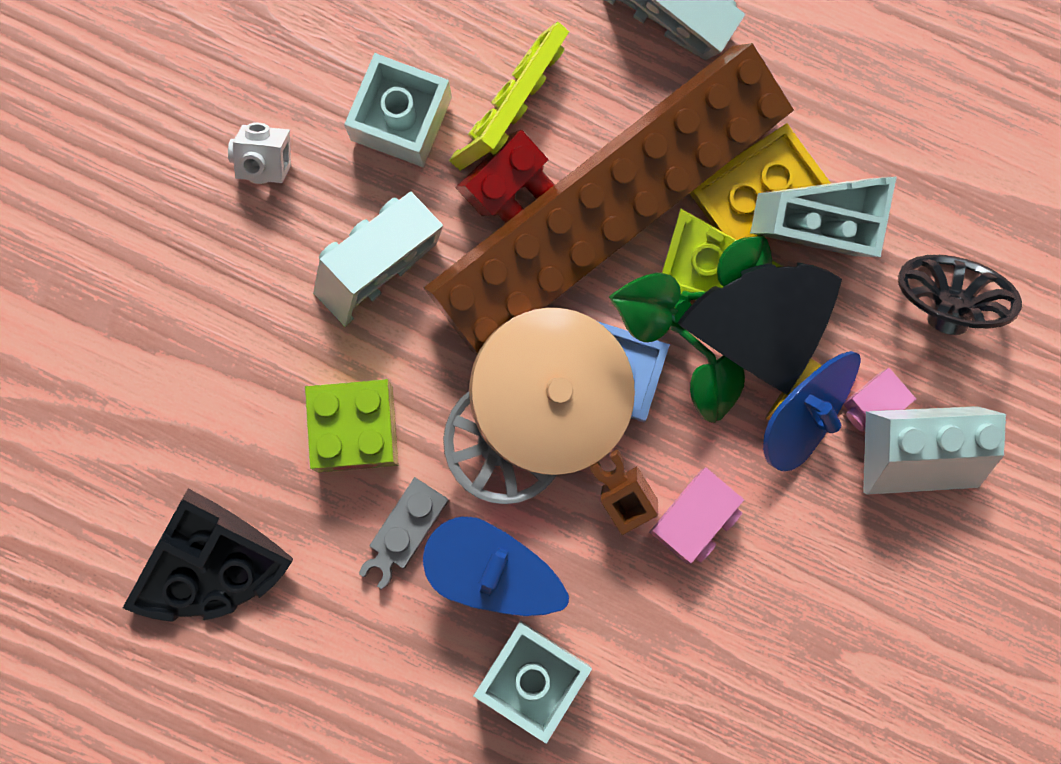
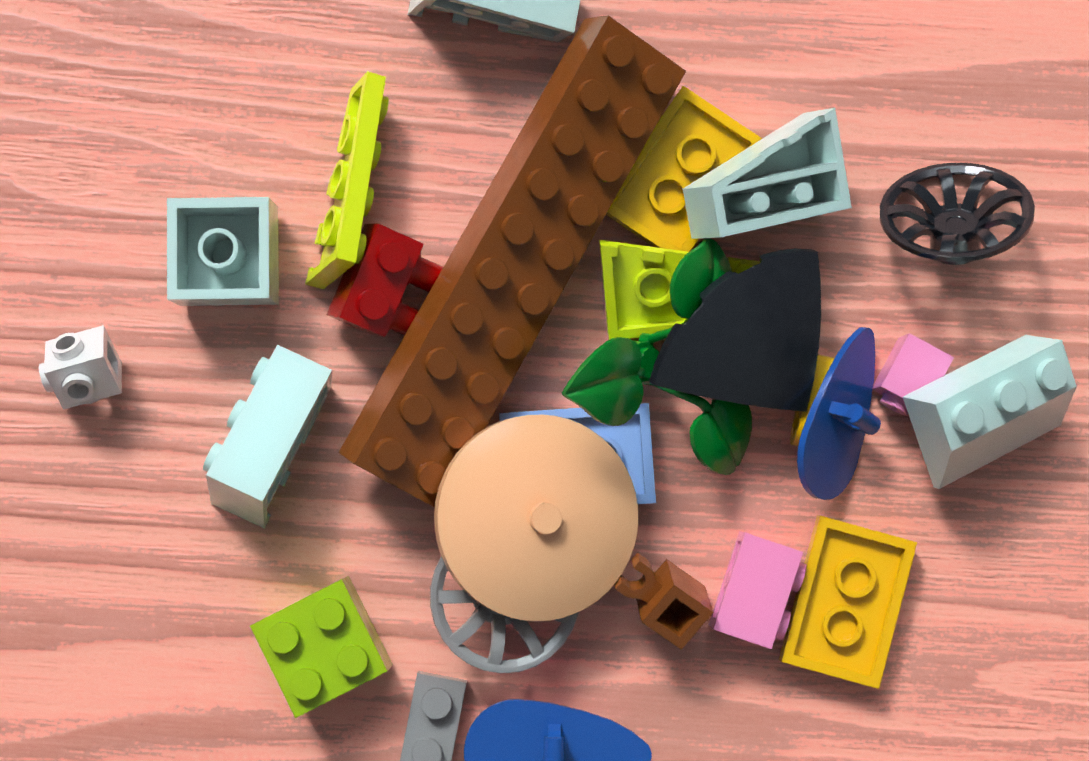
camera: 25 degrees left, 5 degrees up
(763, 554) = (848, 601): none -> yellow plate

